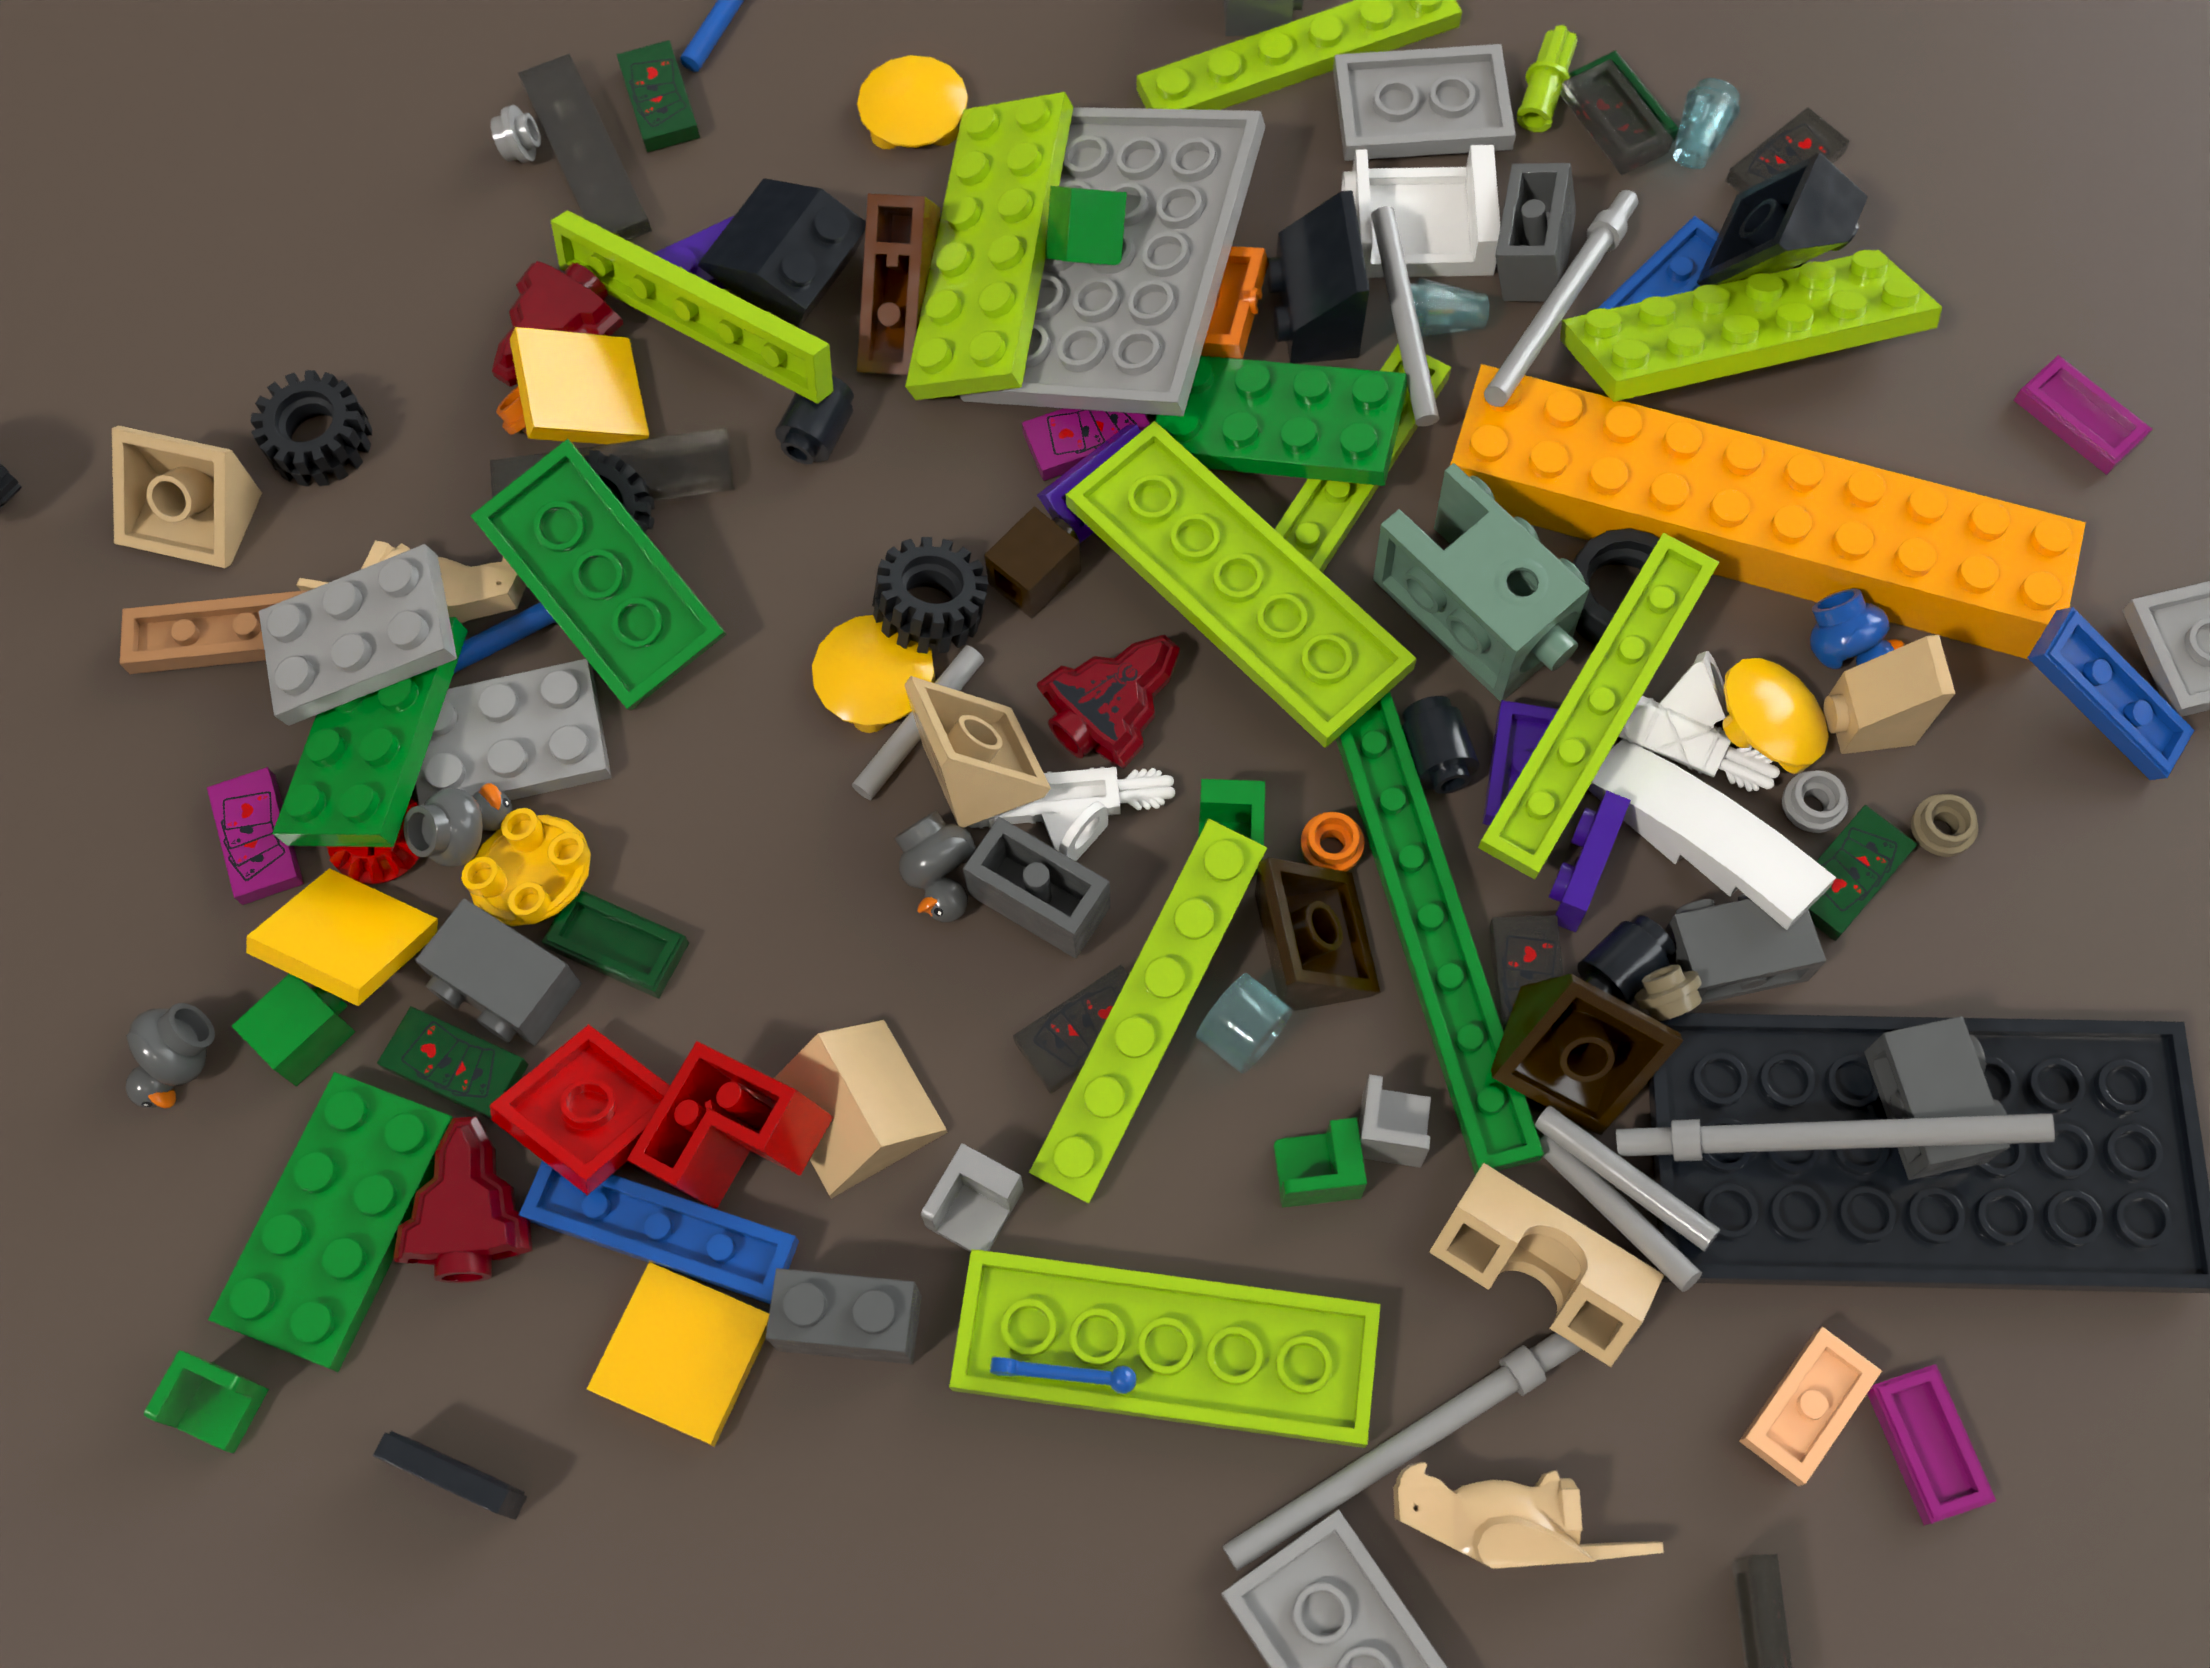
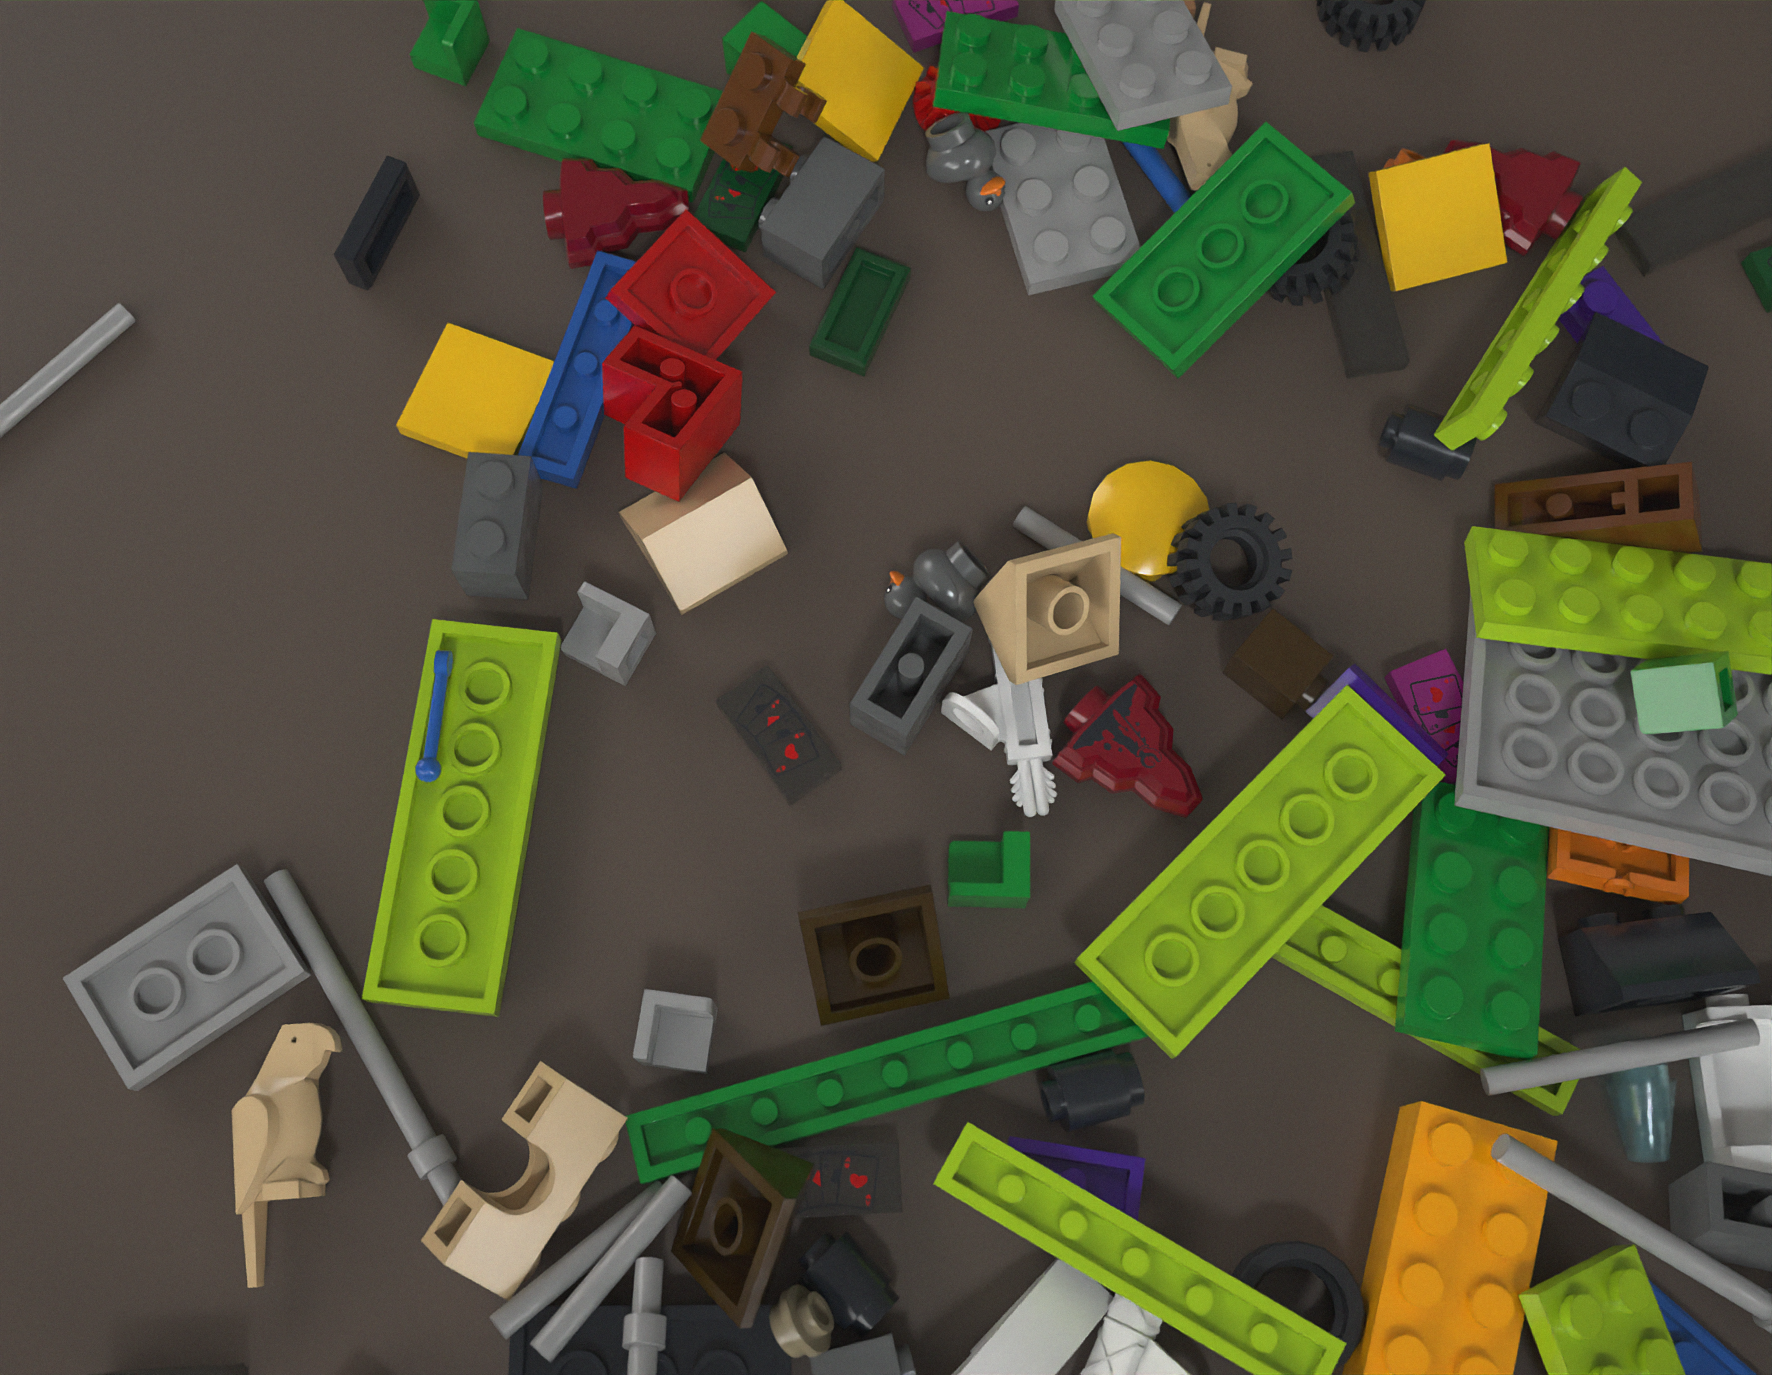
camera: 85 degrees right, 5 degrees up
(367, 1030) = (752, 104): none -> reddish brown plate
(515, 135) = (1736, 132): light grey plate -> none
(528, 868) = (926, 228): yellow dish -> none
(1148, 1011) = (792, 789): lime plate -> none
(1244, 1023) = (776, 881): clear light blue piece -> none
(1321, 1166) = (634, 958): green panel -> none
(1332, 826) = (979, 955): orange plate -> none
(1490, 594) = (1270, 1145): sand green torso -> none
(1596, 836) = (992, 1257): dark purple plate -> none

